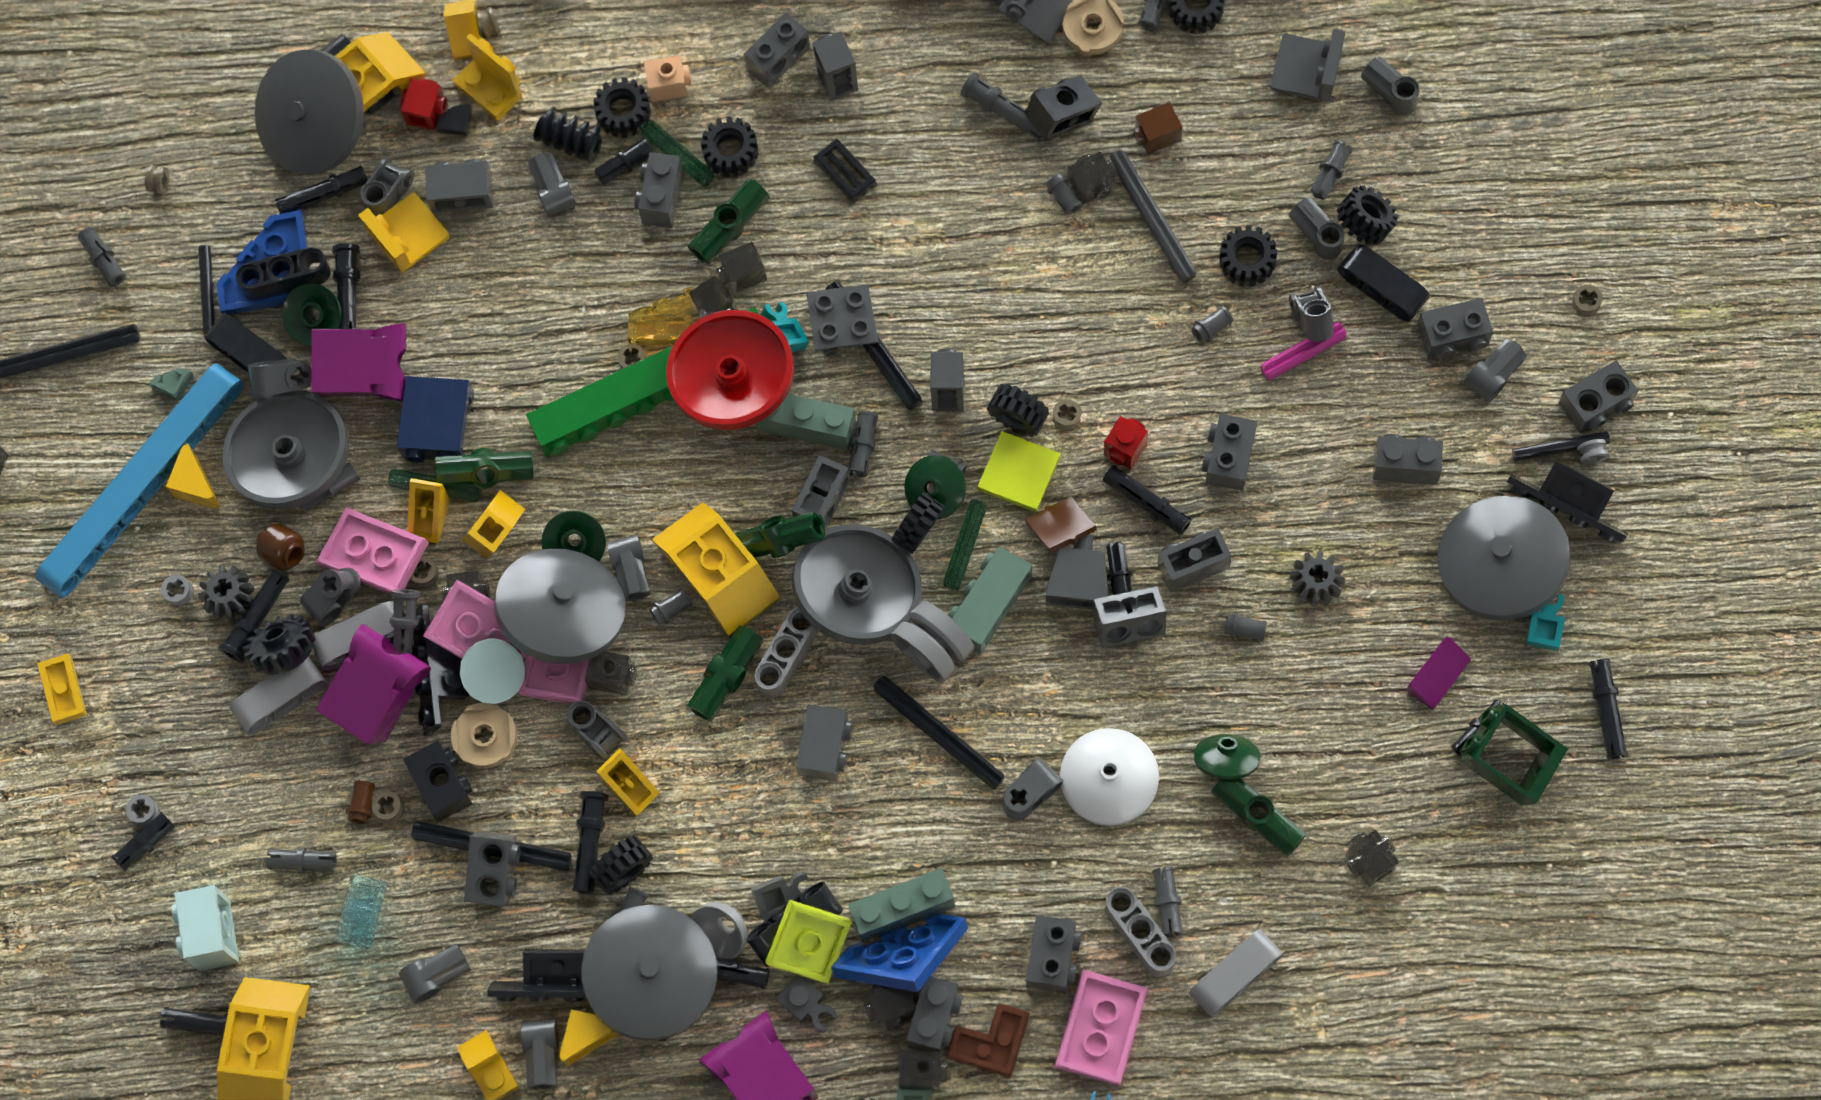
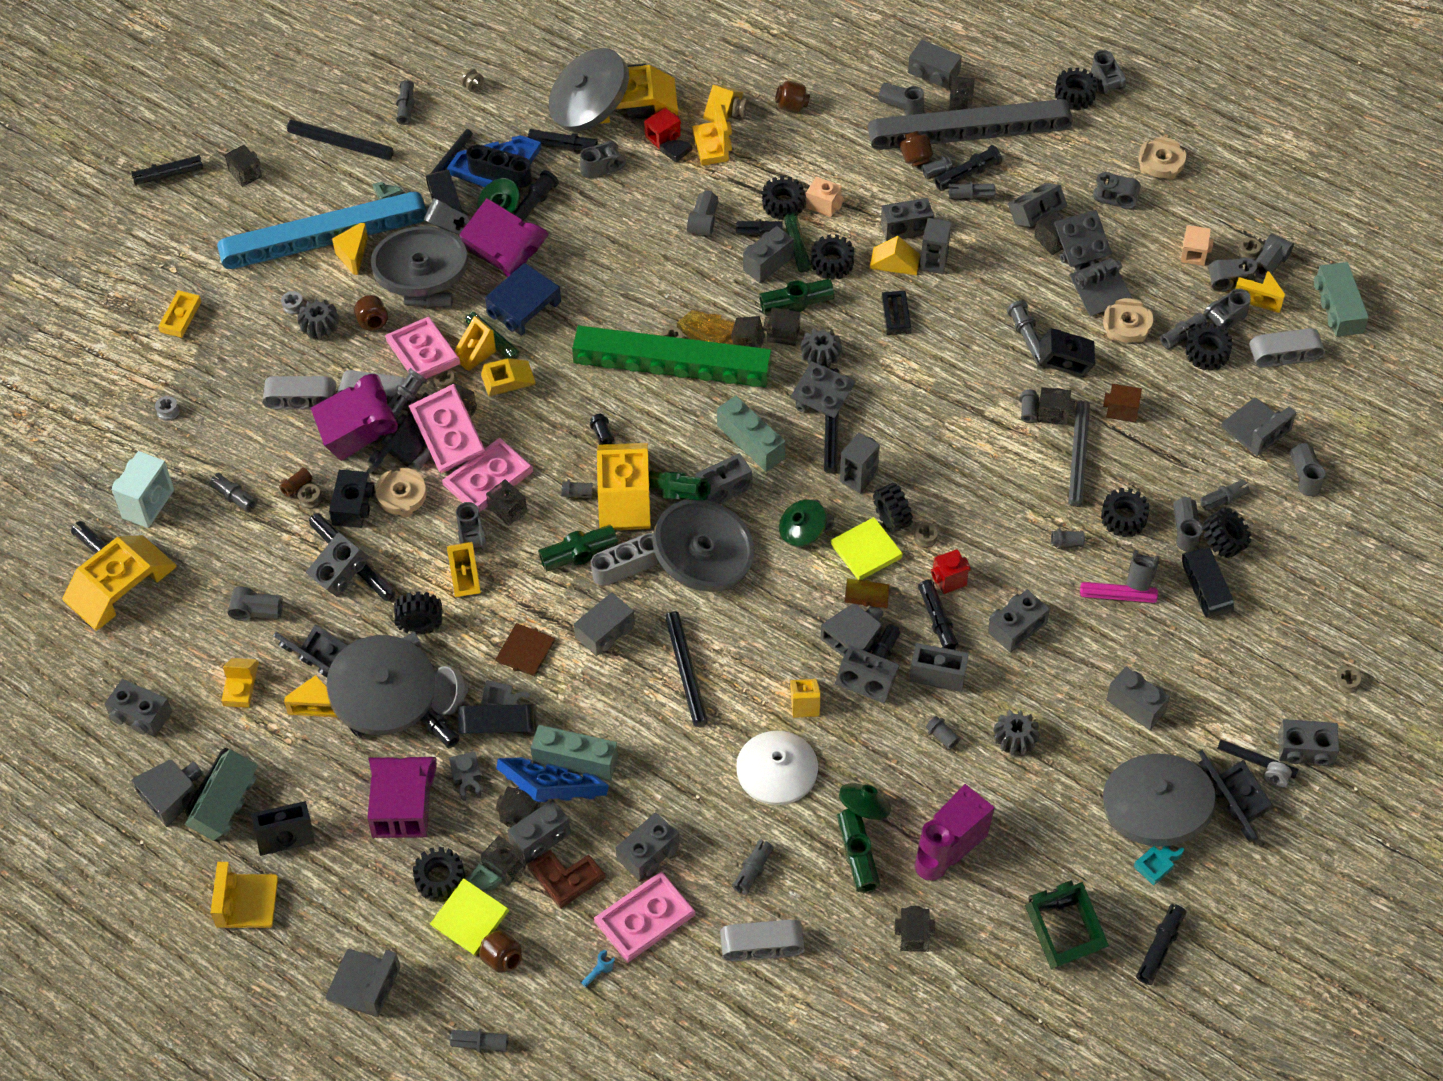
camera: 30 degrees right, 15 degrees down
(143, 841) = (152, 424): black pin -> none
(254, 616) = (313, 346): black pin -> none
(280, 645) = (322, 362): black gear -> none
(330, 594) = (377, 355): dark grey piece -> none
(360, 912) = (239, 539): clear light blue brick -> none
(405, 231) = (592, 190): yellow bracket -> none
(459, 186) = (645, 182): dark grey brick -> none
(467, 468) = (515, 335): dark green piece -> none
(492, 671) = (435, 454): light aqua tile -> none
(540, 1044) = (280, 684): dark grey piece -> none
(559, 606) = (506, 441): dark grey dish -> none
(564, 524) = (537, 414): dark green dish -> none
(569, 135) = (737, 192): black piece -> none
(590, 826) = (419, 582): black pin -> none
(628, 560) = (572, 446): dark grey piece -> none
(641, 518) = (599, 424): none -> black pin
(730, 369) = (723, 370): red dish -> none
(756, 824) = (525, 649): none -> reddish brown piece
(789, 266) = (821, 347): none -> dark grey gear
(789, 327) = (779, 377): teal plate -> none
(795, 104) = (895, 257): none -> yellow slope
(808, 941) = (495, 732): neon yellow tile -> none
(862, 443) = (777, 471): dark grey pin -> none
(917, 523) = (772, 533): black tyre -> none
(932, 641) = (723, 606): light grey wheel -> none
(964, 544) = (795, 569): clear green axle -> none
(991, 596) = (783, 609): sand green brick -> none
(1034, 785) = (718, 738): dark grey piece -> none
(1081, 680) = (805, 698): none -> yellow slope
(1135, 916) = (720, 883): light grey beam -> none
(1339, 734) = (953, 833): none -> magenta piece
(1438, 673) = (1056, 844): magenta slope -> none
(1455, 328) = (1236, 639): dark grey brick -> none
(1491, 376) = (1238, 683): dark grey piece -> none

